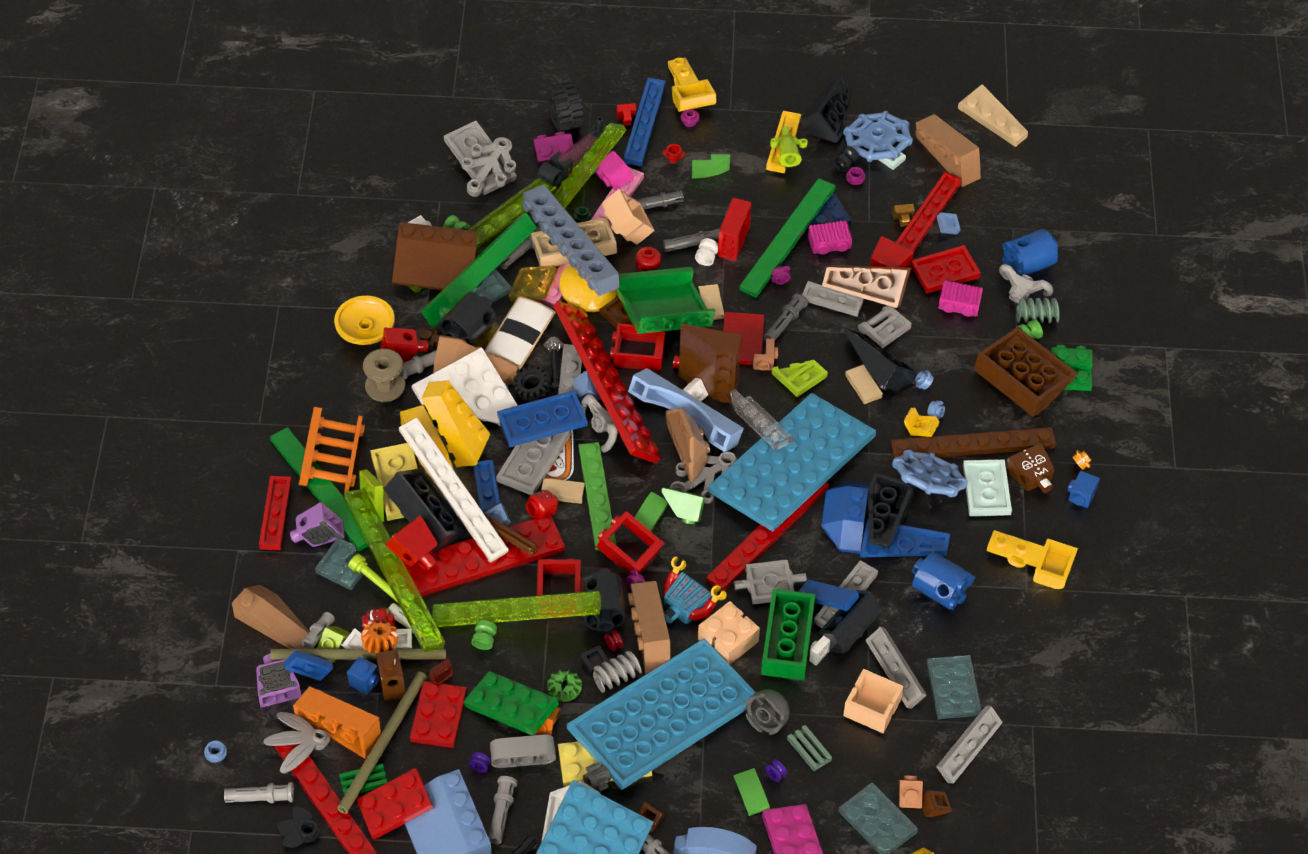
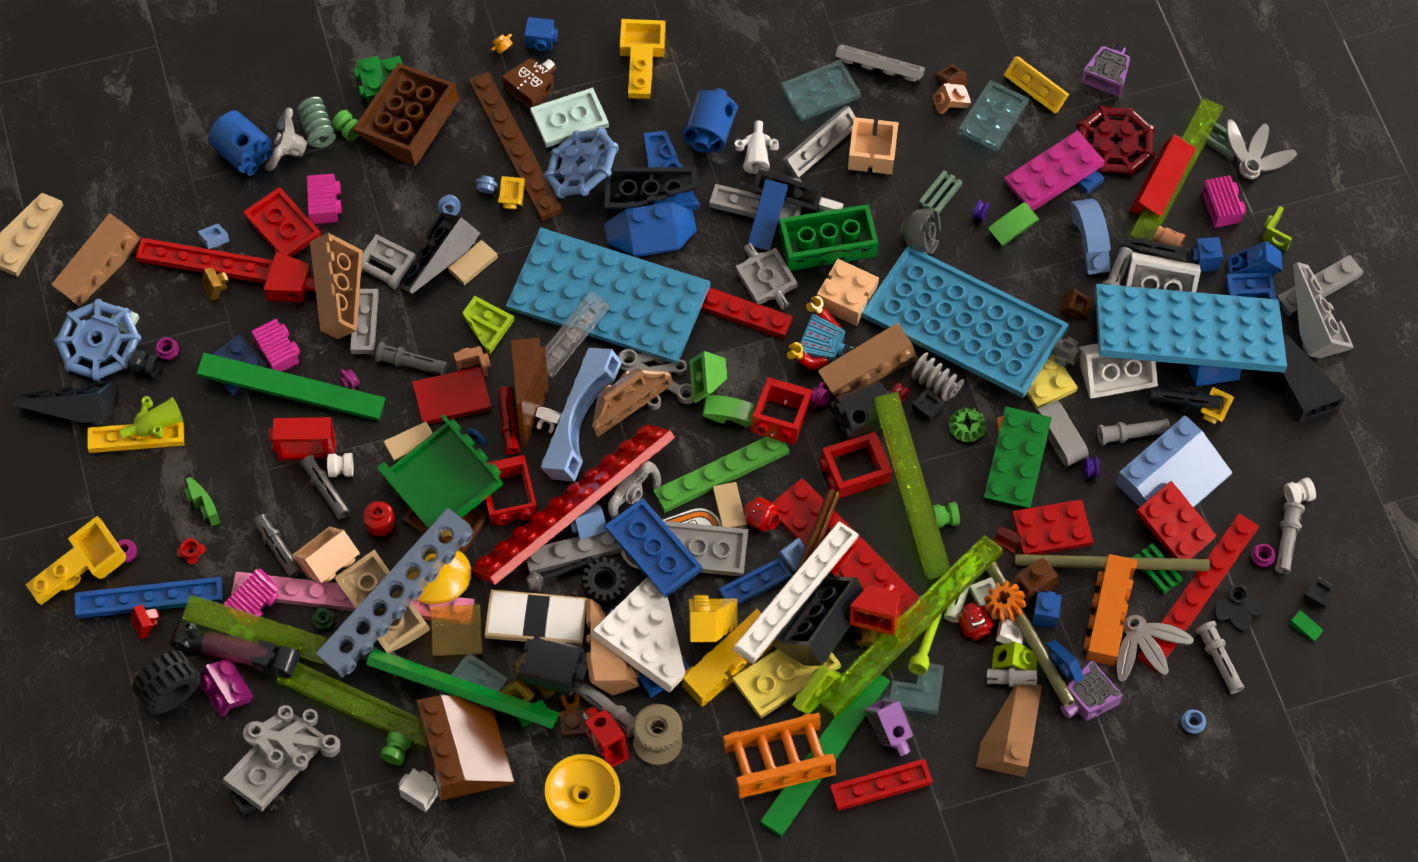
camera: 110 degrees left, 10 degrees up
(905, 616) = (757, 149): none -> white piece

